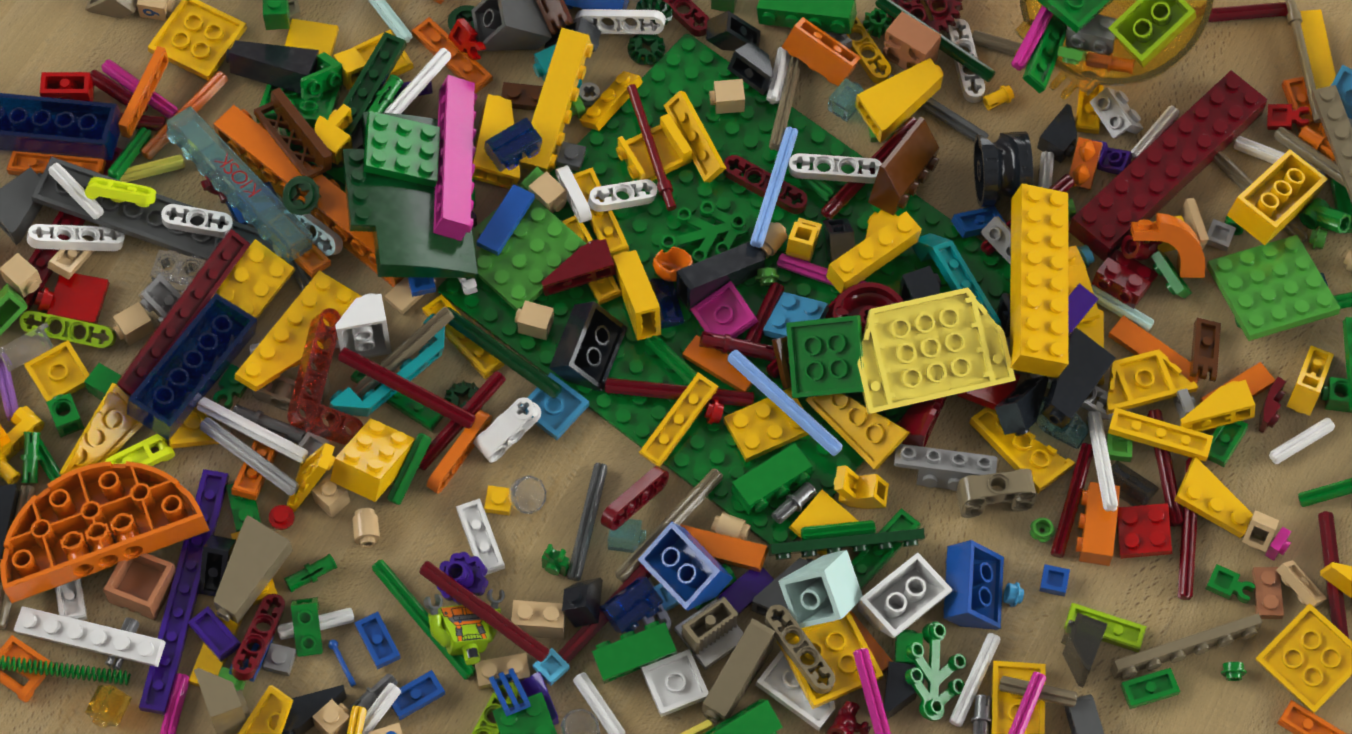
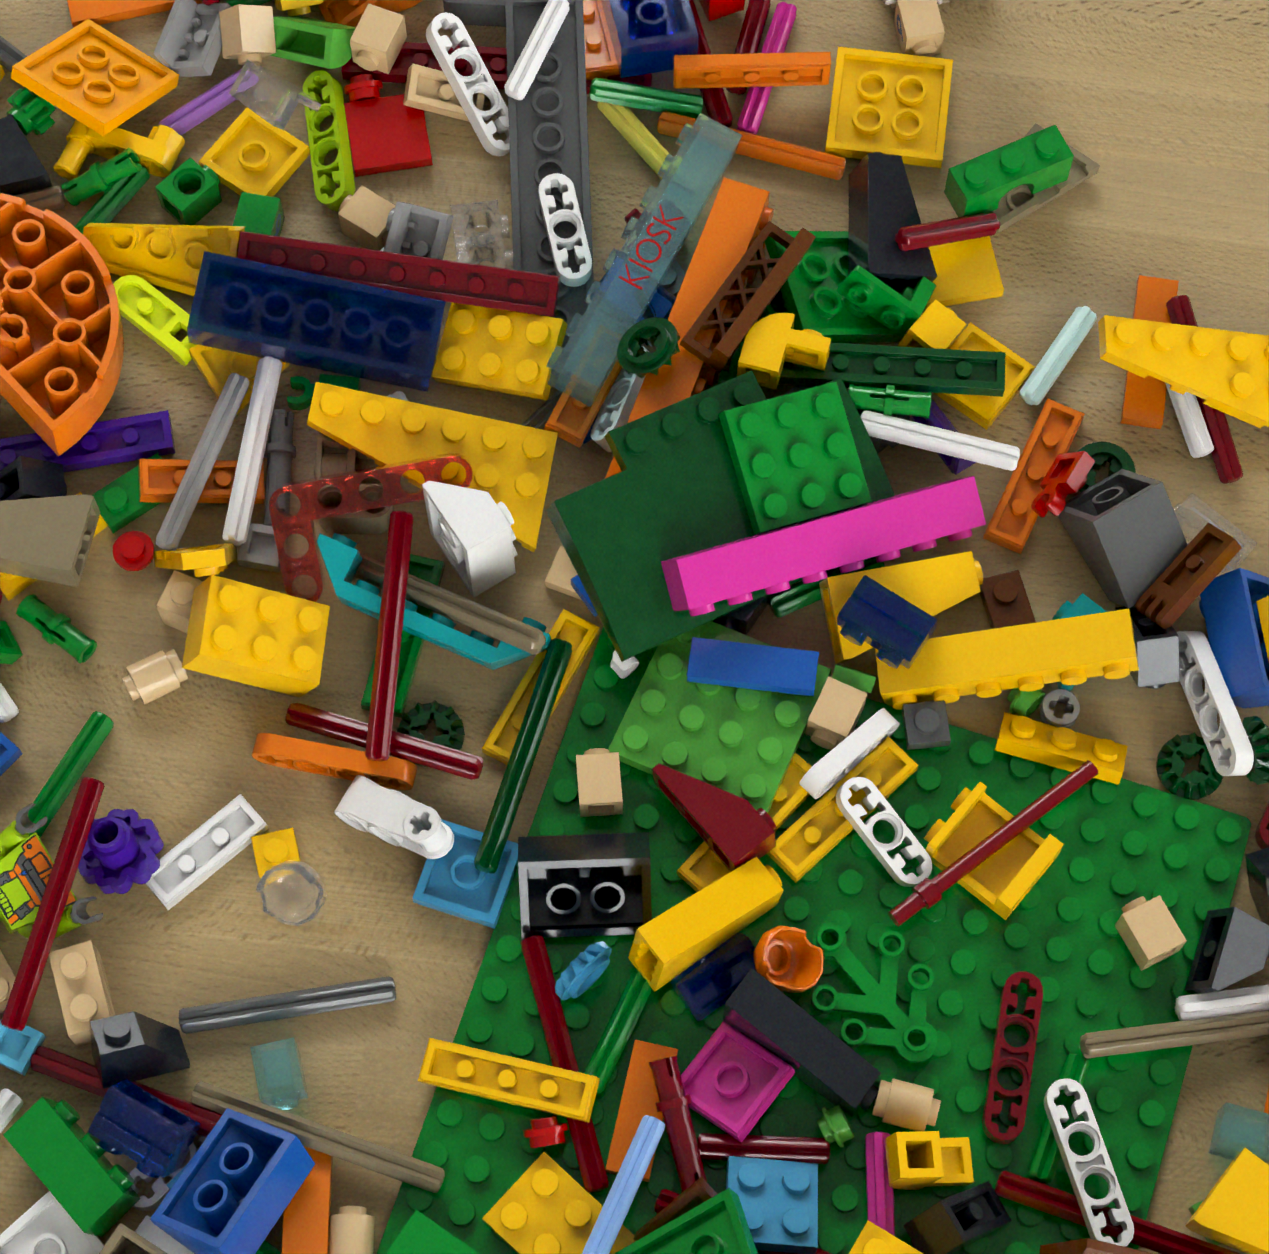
camera: 70 degrees right, 5 degrees up
(120, 191) = (559, 104): neon yellow plate -> none
(295, 34) = (947, 231): none -> dark red axle
(409, 469) = (273, 698): green axle -> none
(555, 561) = (190, 980): green plate -> none
(634, 498) = (337, 1062): dark red beam -> none
(637, 361) = (583, 971): none -> dark azure gear
(703, 150) = (1047, 906): yellow plate -> none
(774, 187) = (1001, 1072): light blue axle -> none

